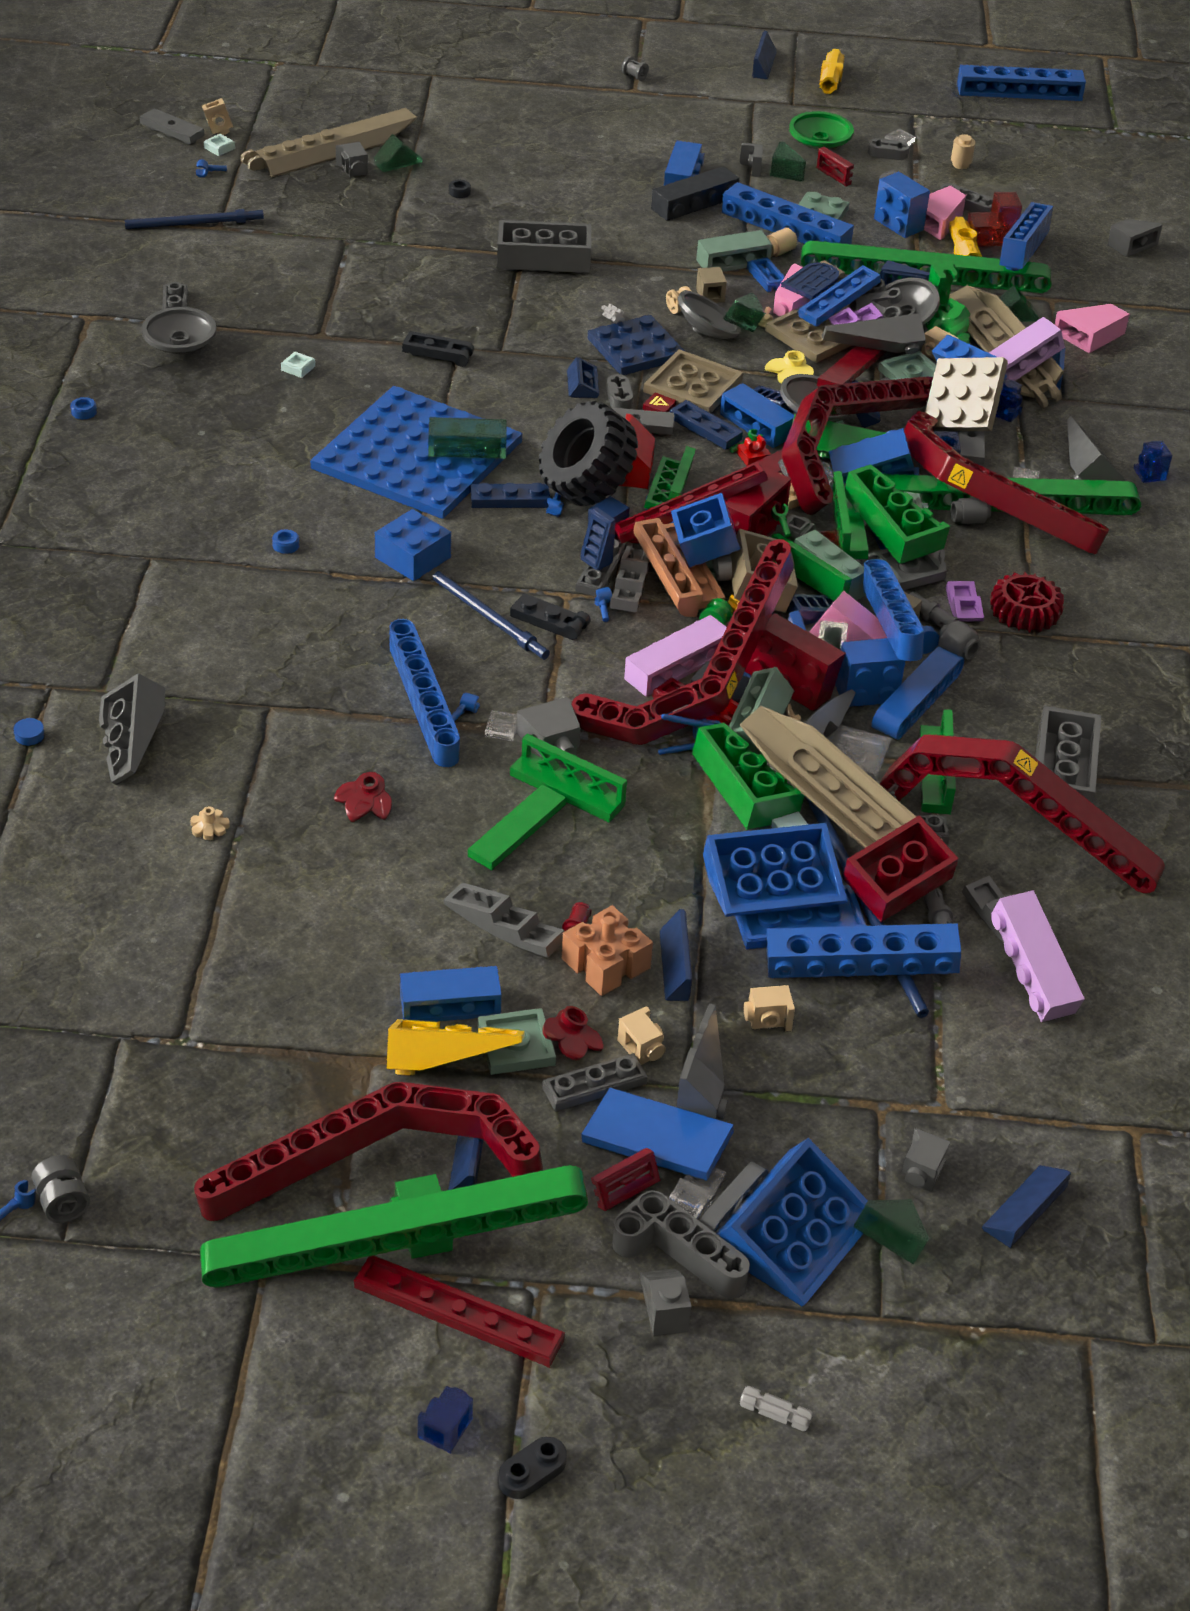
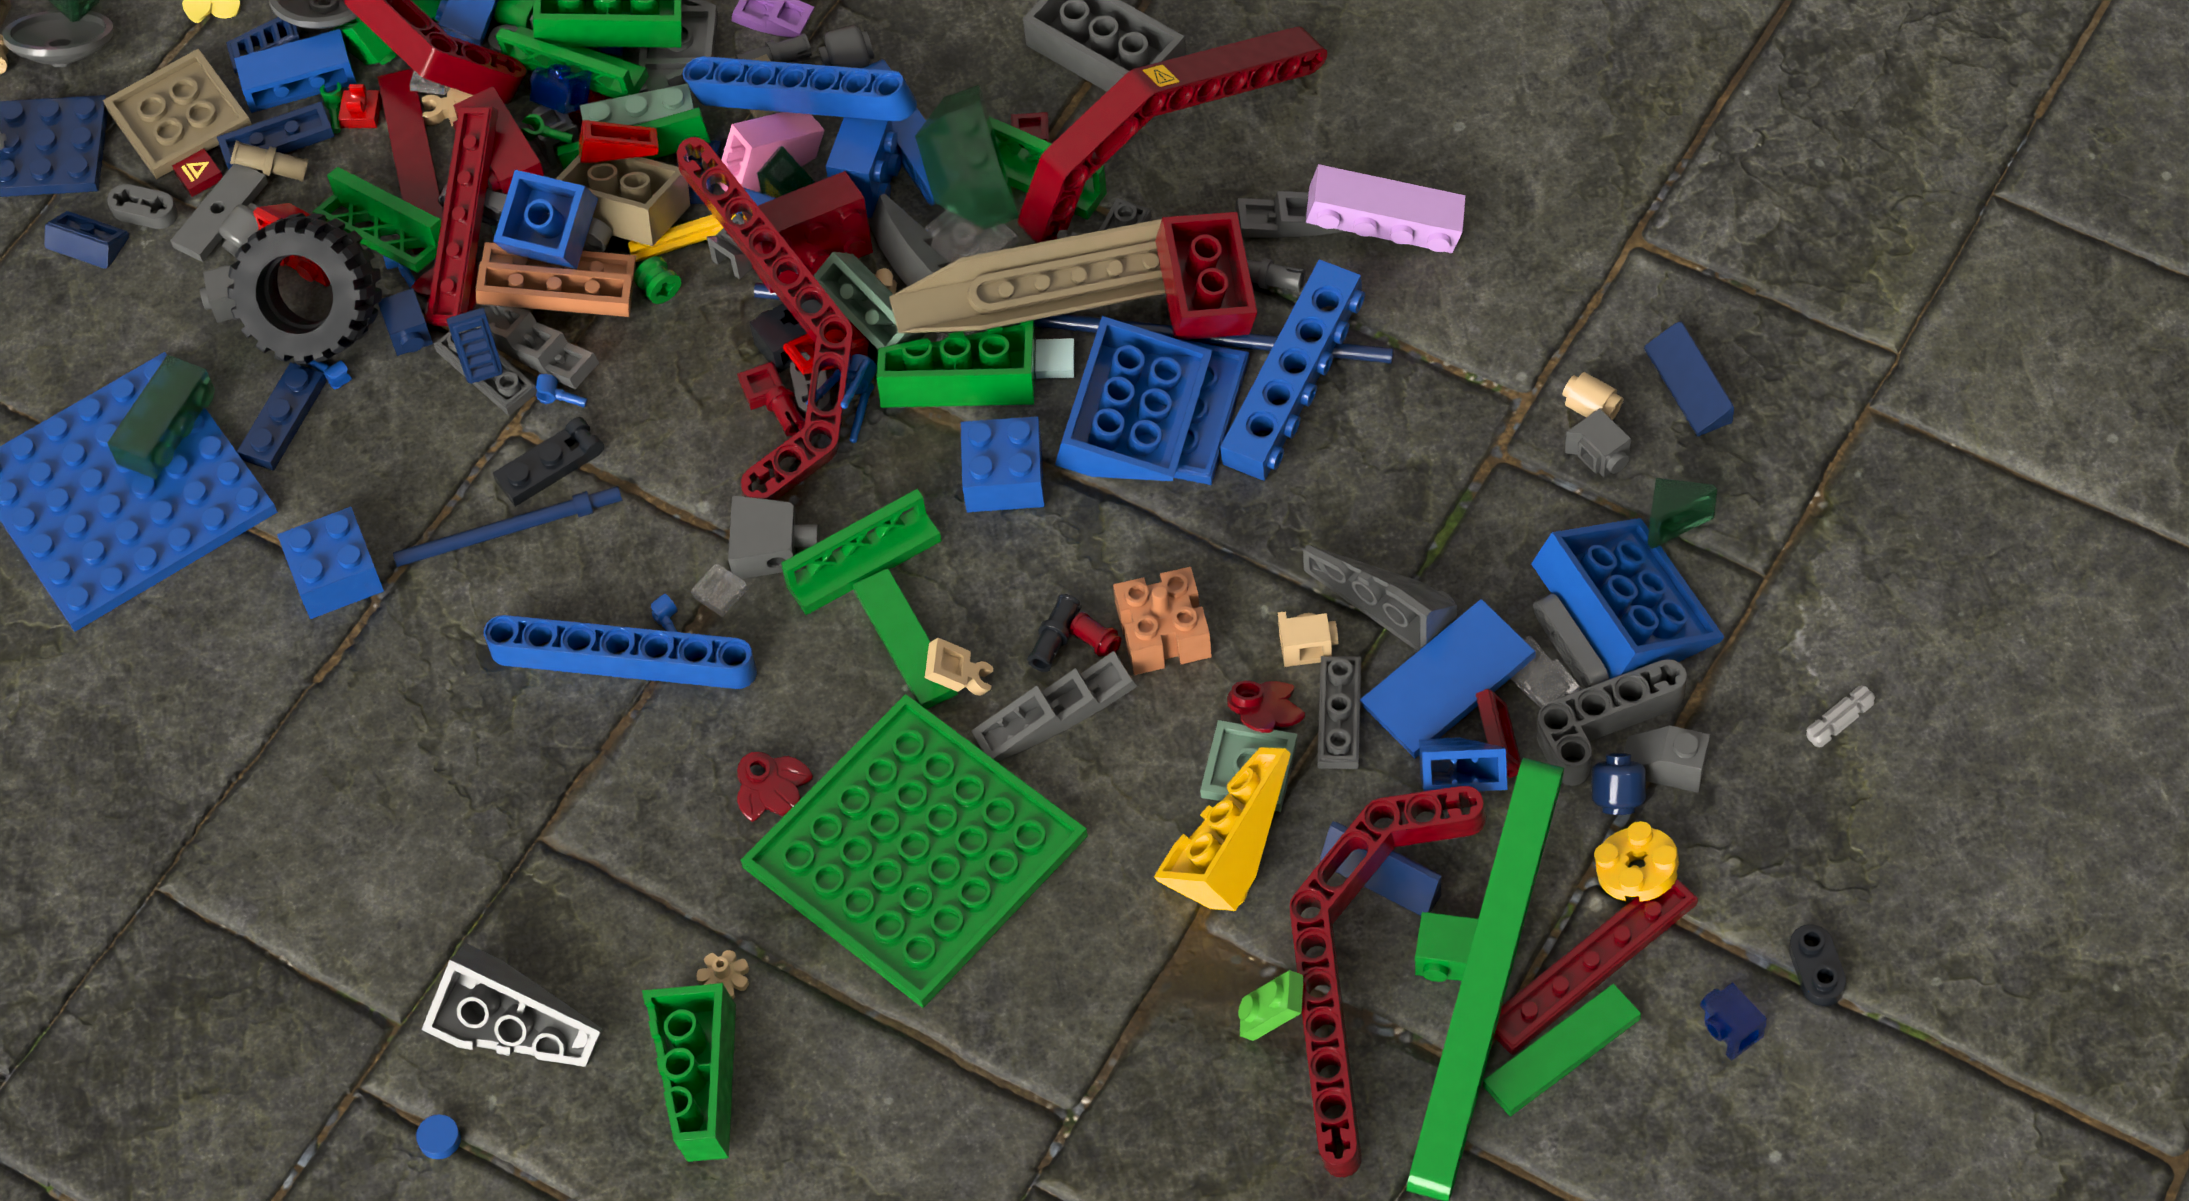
camera: 55 degrees left, 15 degrees up
(124, 825) = (695, 1059): none -> green wedge
(285, 541) = (221, 712): blue tile -> none
(312, 1107) = (1271, 1005): none -> bright green plate
(351, 884) = (914, 850): none -> green plate
(371, 1315) = (1561, 1050): none -> green tile
(450, 994) = (1148, 806): blue brick -> none
(501, 847) = (952, 668): none -> tan plate
(564, 898) = (1054, 633): none -> black pin
(565, 1140) = (1462, 763): none -> blue slope
(575, 1305) = (1631, 844): none -> yellow plate
(619, 1268) = (1618, 784): none -> dark blue head
(674, 655) = (706, 350): lavender brick -> none
(676, 958) = (1208, 556): dark blue slope -> none
(680, 823) = (1002, 464): none -> blue brick
(683, 424) = (269, 161): none -> dark tan pin
(770, 1007) = (1325, 495): tan brick -> none
(802, 554) = (615, 141): none -> red slope
(822, 511) = (560, 88): none -> clear blue brick
(907, 716) = (966, 161): none -> clear green wedge
(965, 1143) = (1588, 394): none -> tan brick

